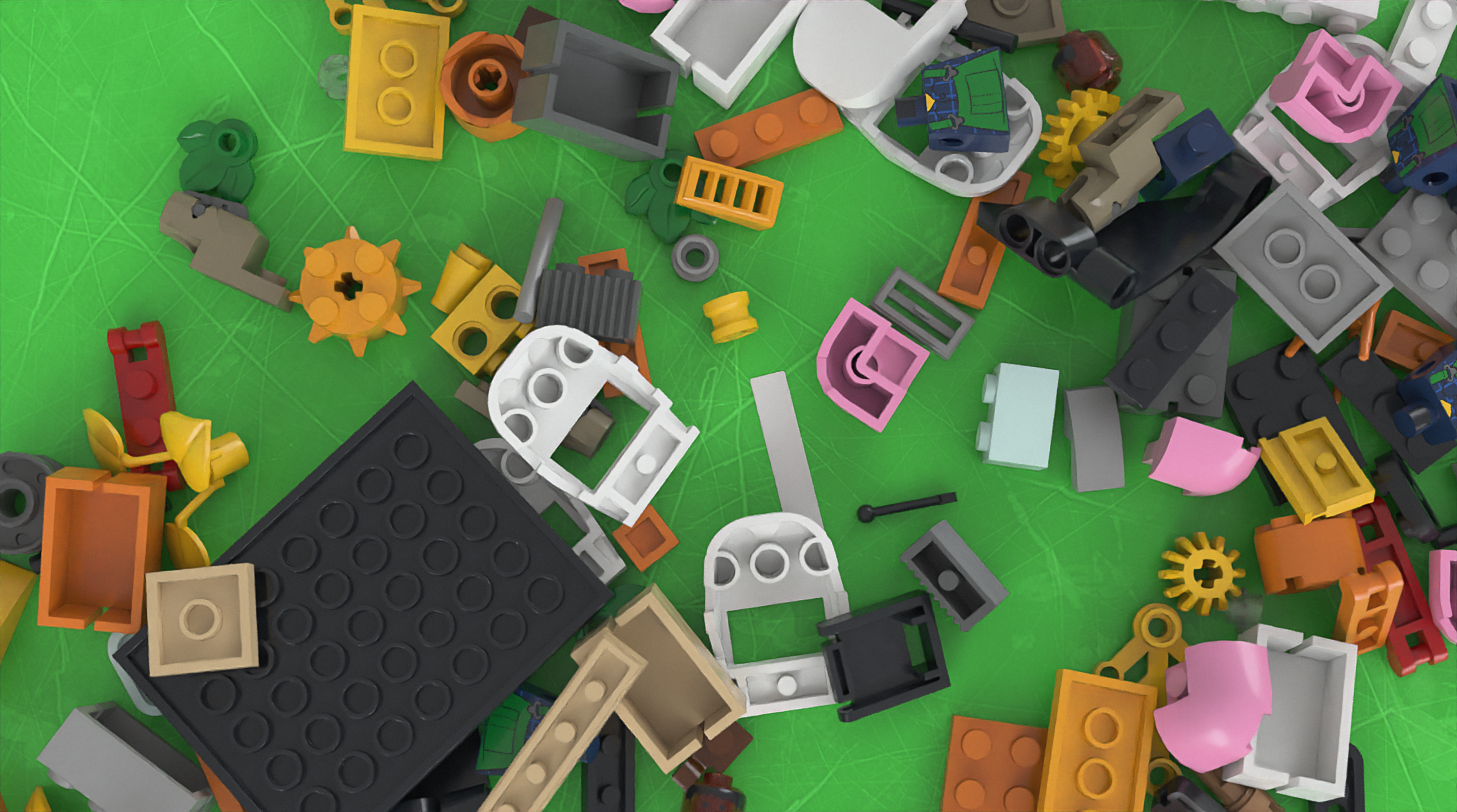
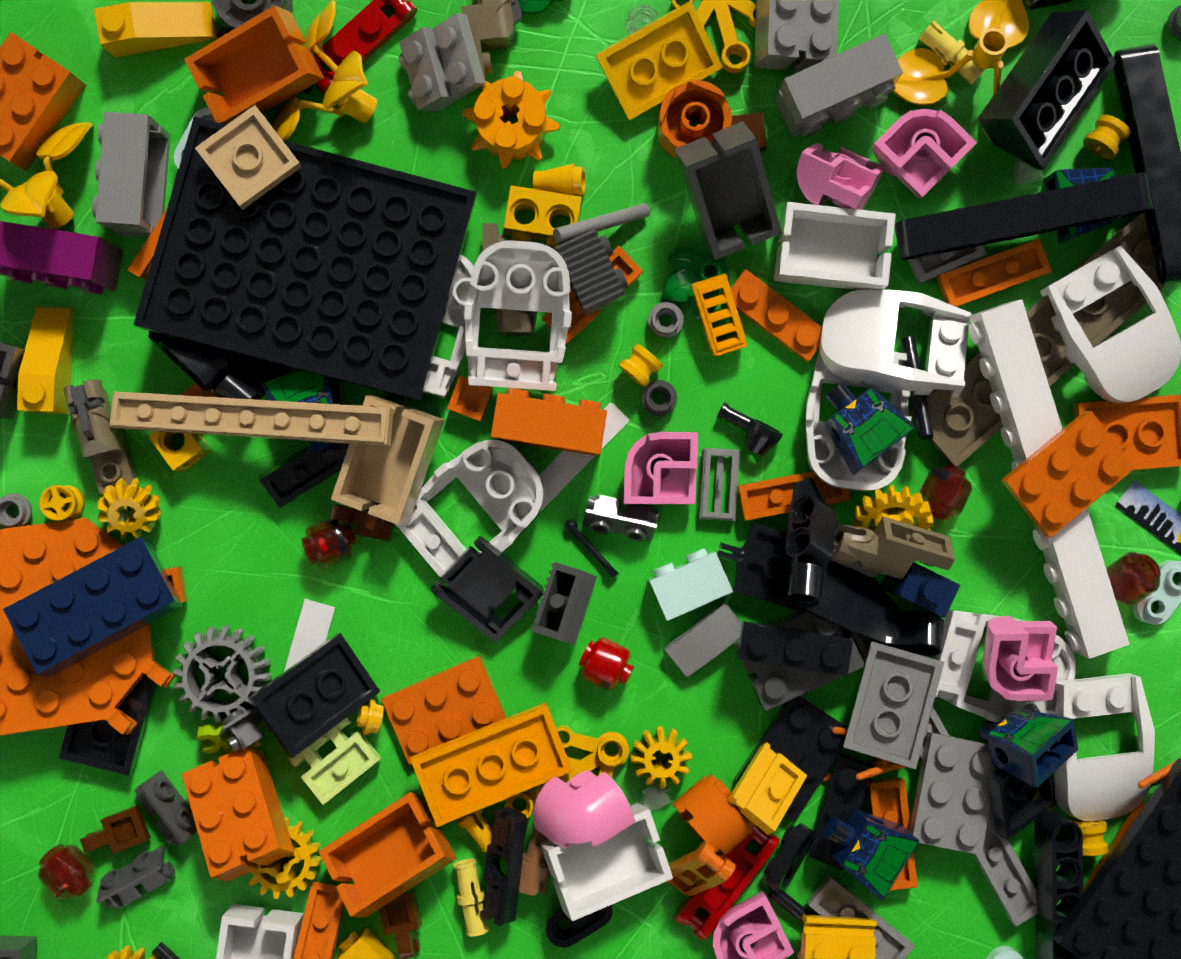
camera: 55 degrees right, 5 degrees up
(239, 329) = (441, 64): none -> light grey plate
(734, 458) = (549, 422): none -> orange piece
(783, 305) = (659, 386): none -> dark grey plate
(894, 233) = (759, 436): none -> black bar
(909, 436) = (604, 517): none -> dark grey hinge
(1049, 317) = (761, 565): none -> black plate
(1054, 570) = (606, 663): none -> red head
(1199, 458) = (730, 712): bright pink brick -> none

